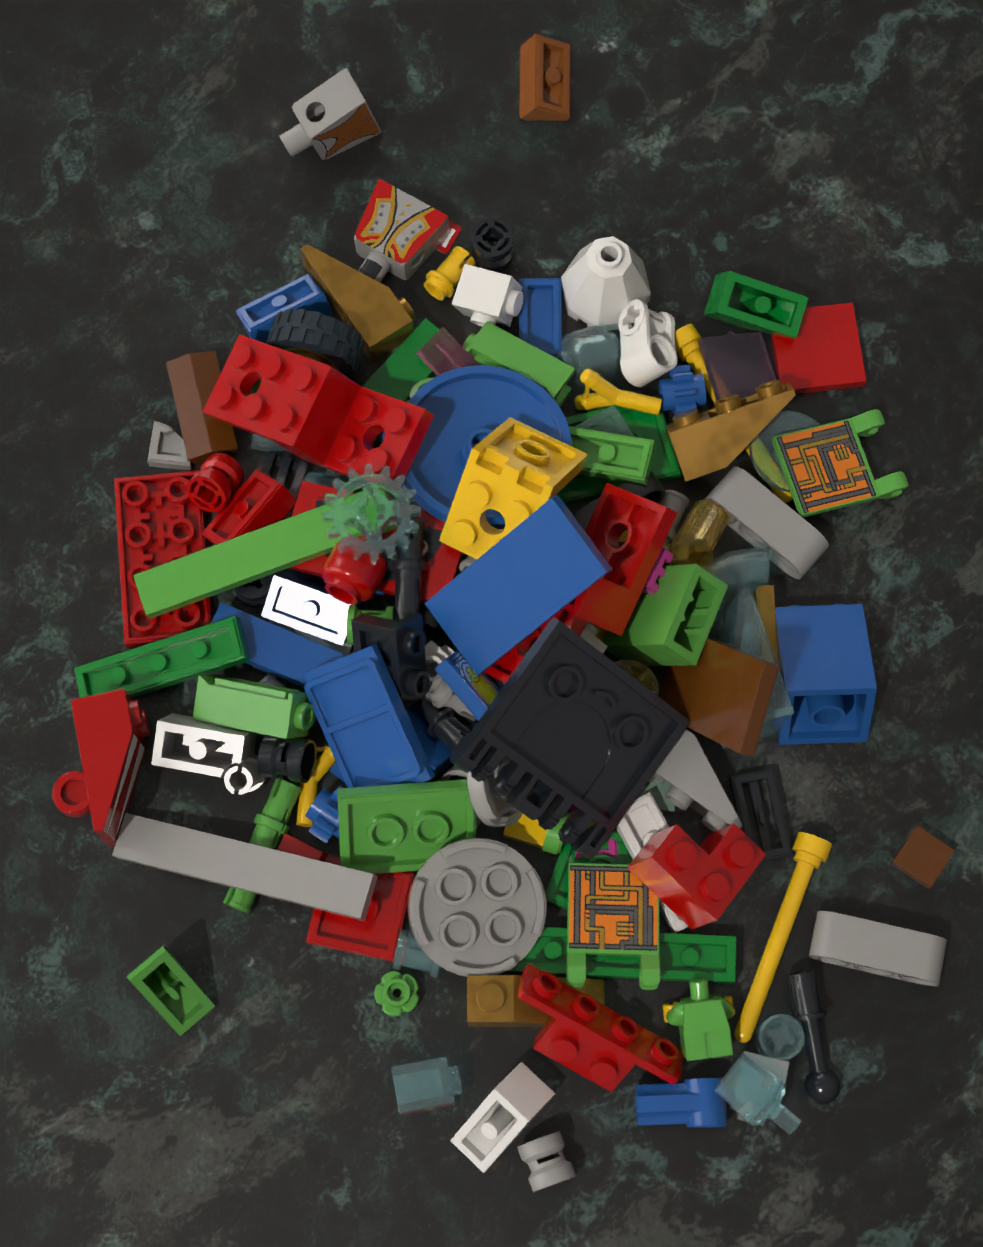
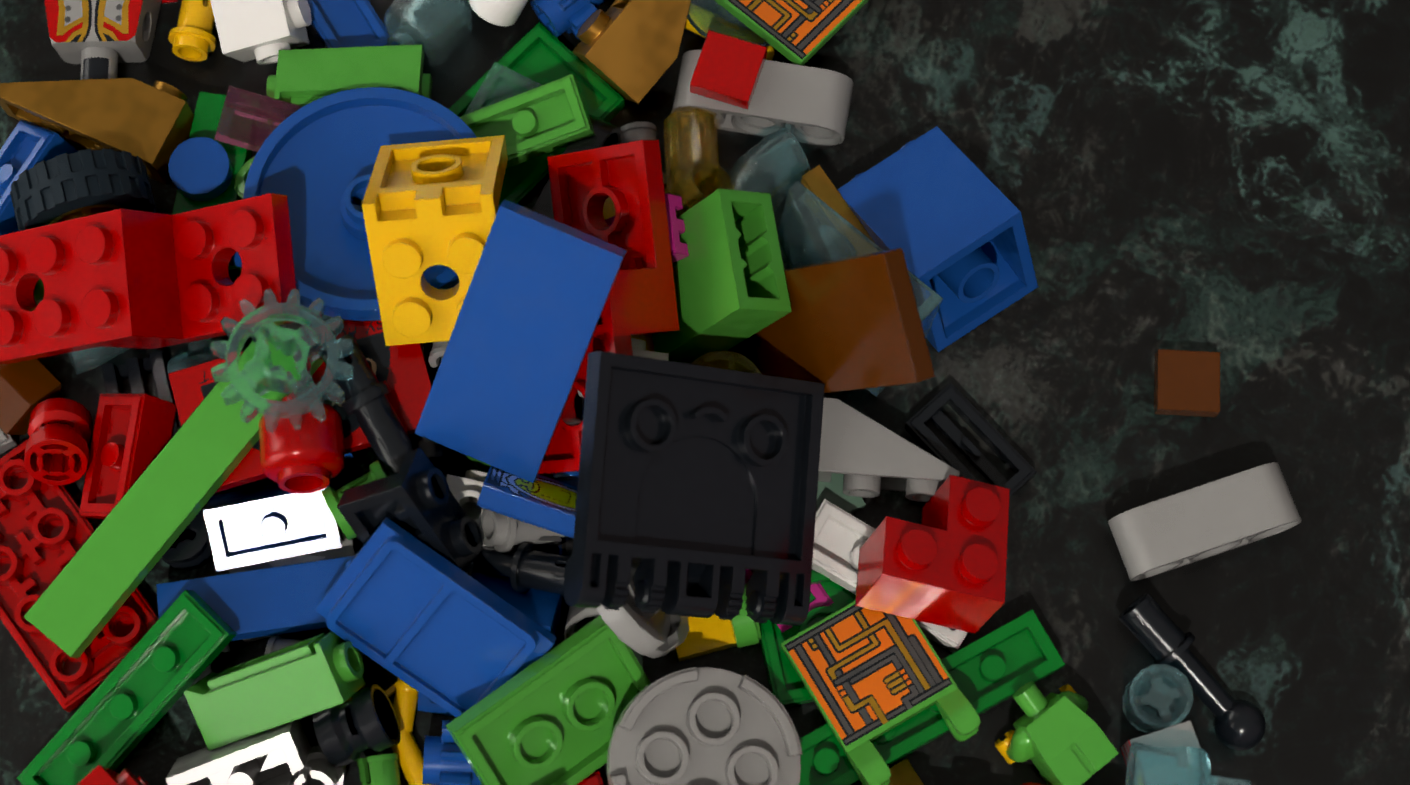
camera: 30 degrees left, 0 degrees up
(397, 366) = (200, 169): none -> blue tile
(609, 395) = (482, 53): yellow piece -> none
(753, 493) = (728, 69): none -> red tile
(809, 854) = (1056, 458): yellow piece -> none

